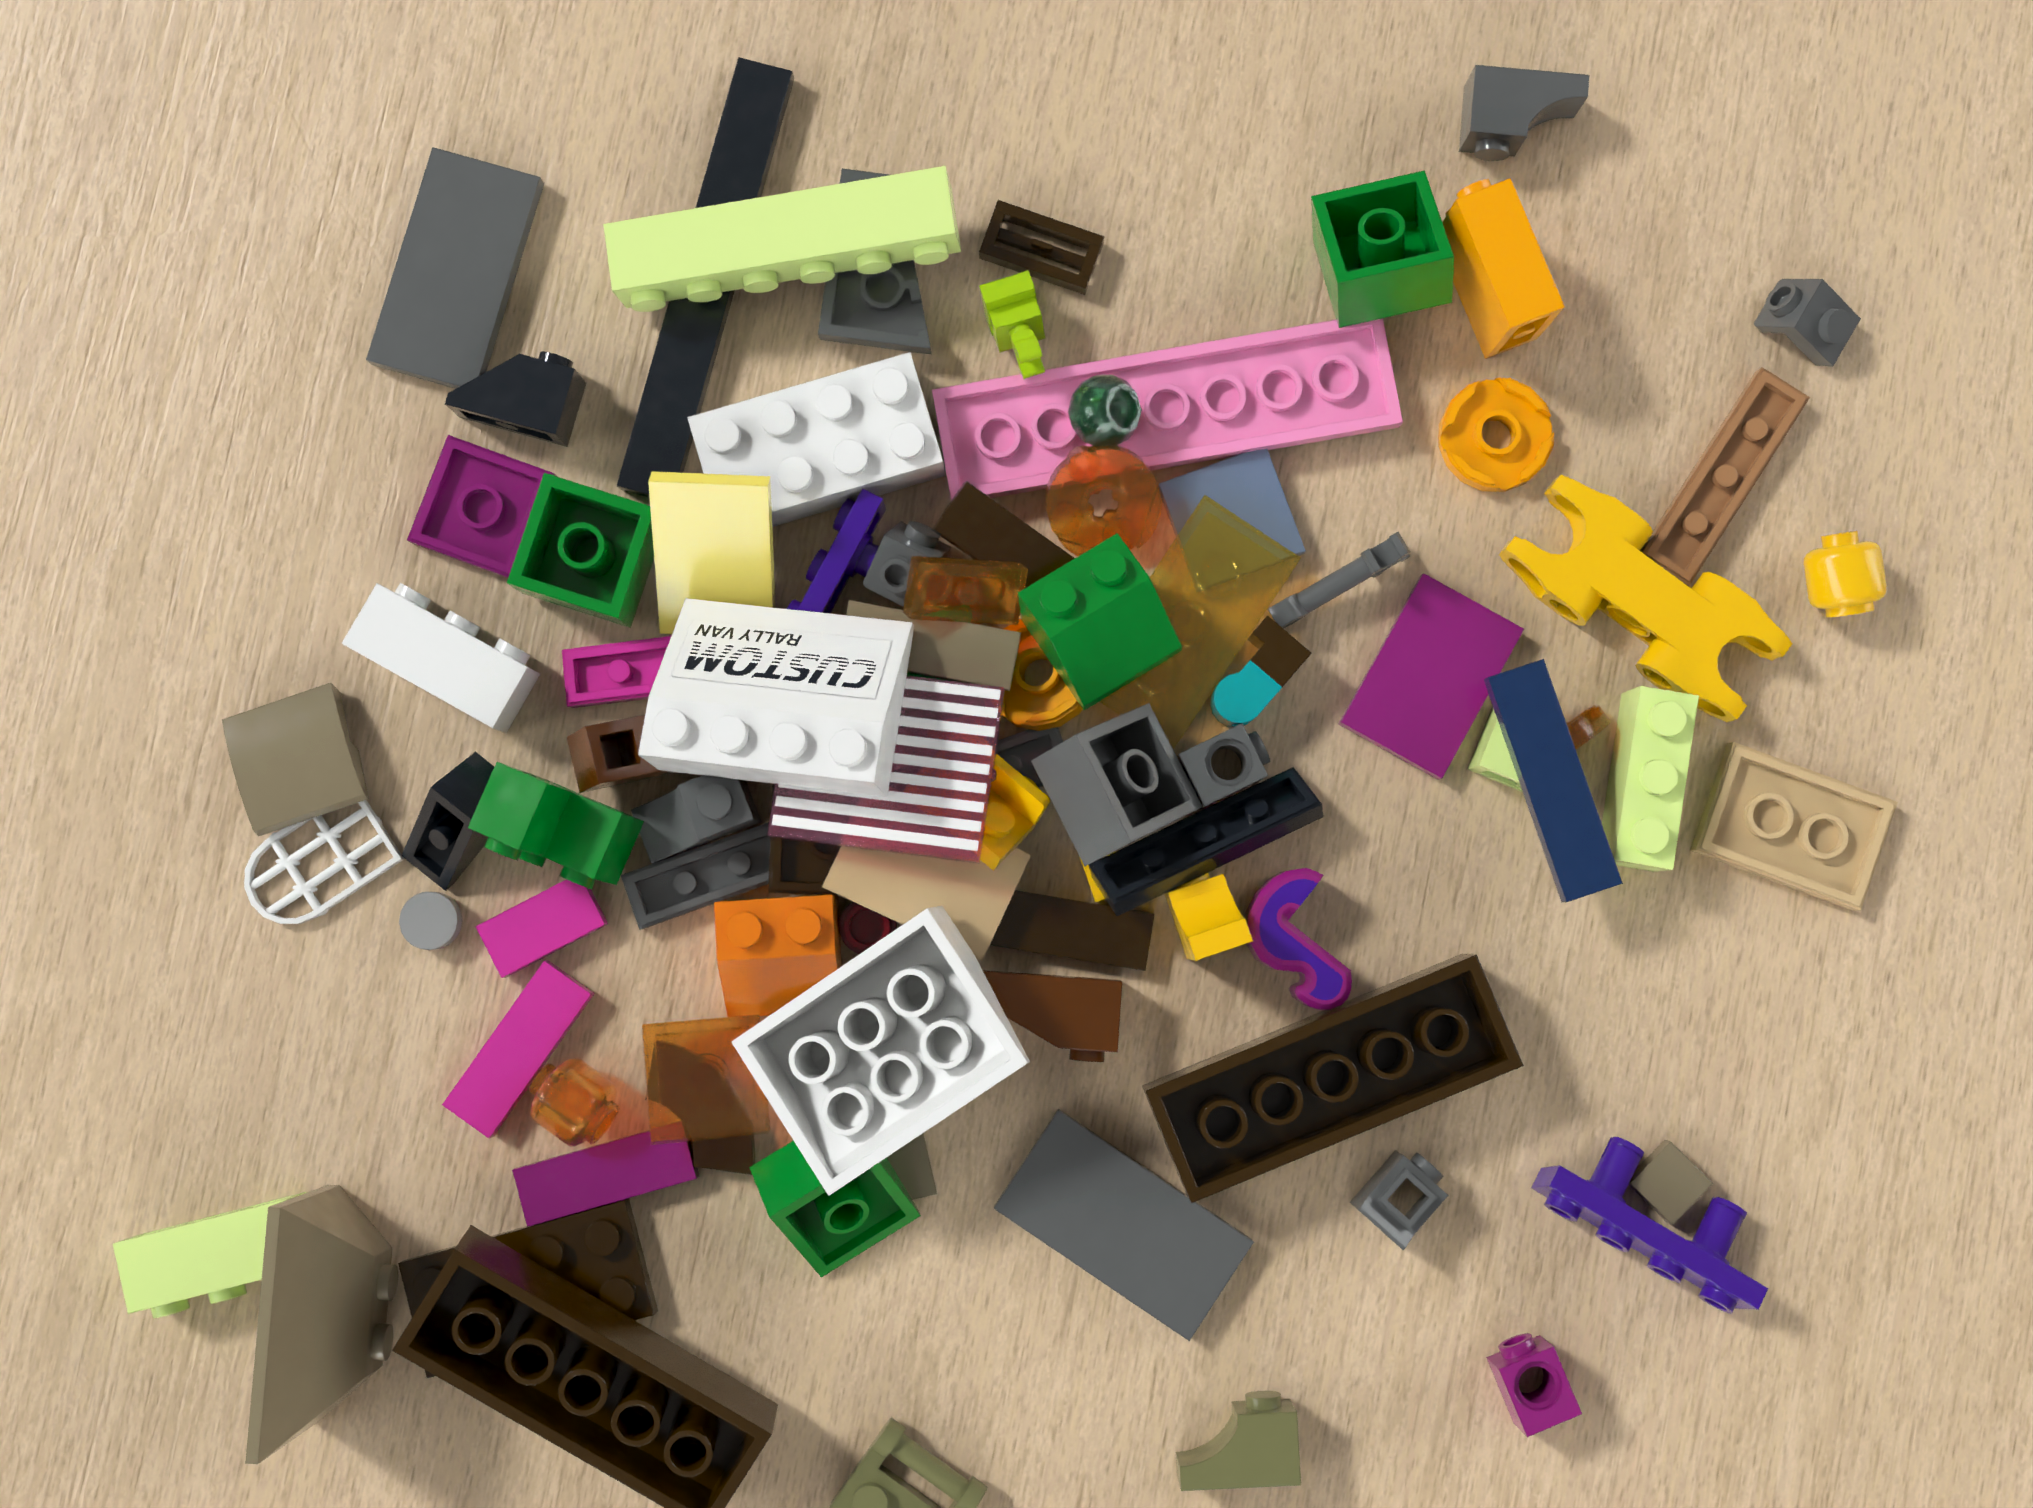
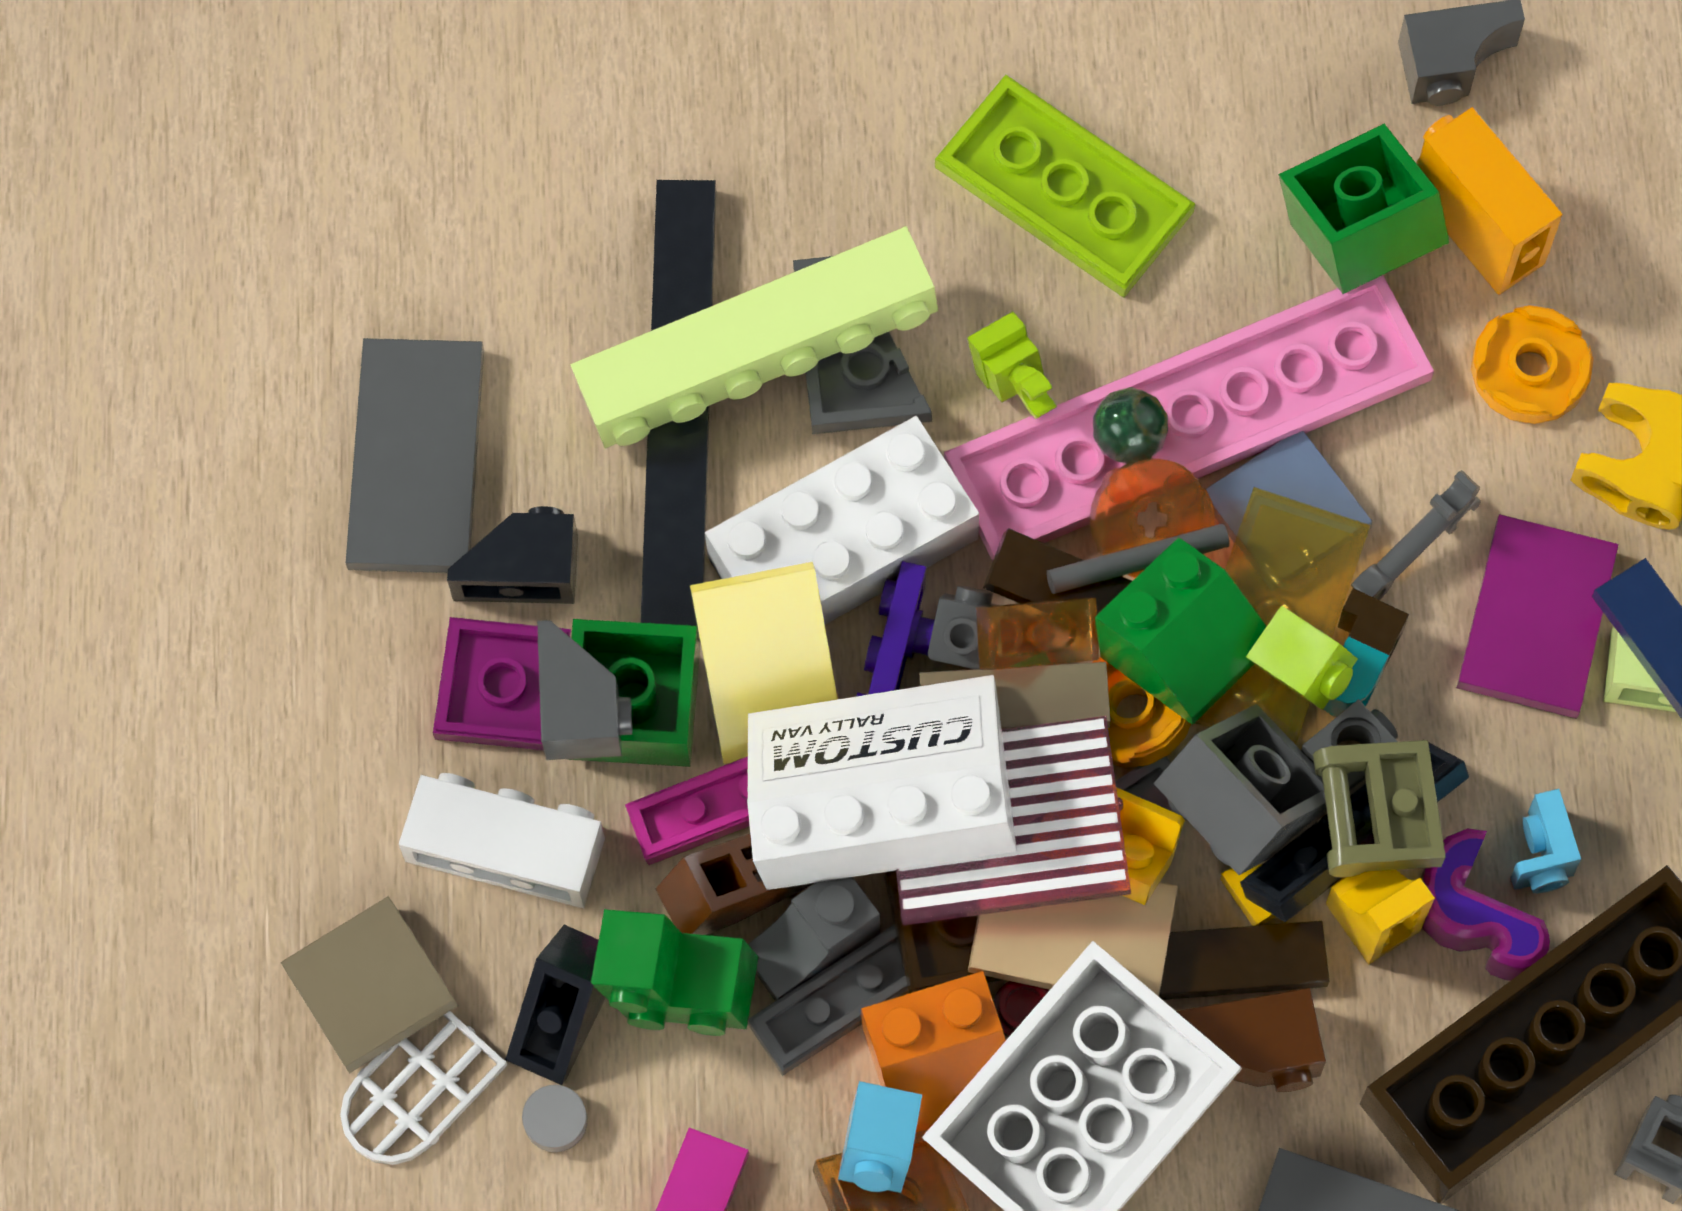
camera: 15 degrees left, 15 degrees down
(519, 555) = (578, 700): none -> dark grey slope
(540, 926) = (675, 1094): dark pink tile -> none
(699, 1025) = (880, 1137): none -> medium azure brick
(1047, 226) = (1015, 270): dark brown tile -> none
(1075, 538) = (1131, 559): none -> dark grey bar
(1114, 153) = (1064, 185): none -> lime tile
(1201, 675) = (1303, 658): none -> lime brick
(1249, 836) = (1400, 806): none -> olive plate
(1382, 887) = (1551, 834): none -> medium azure bracket

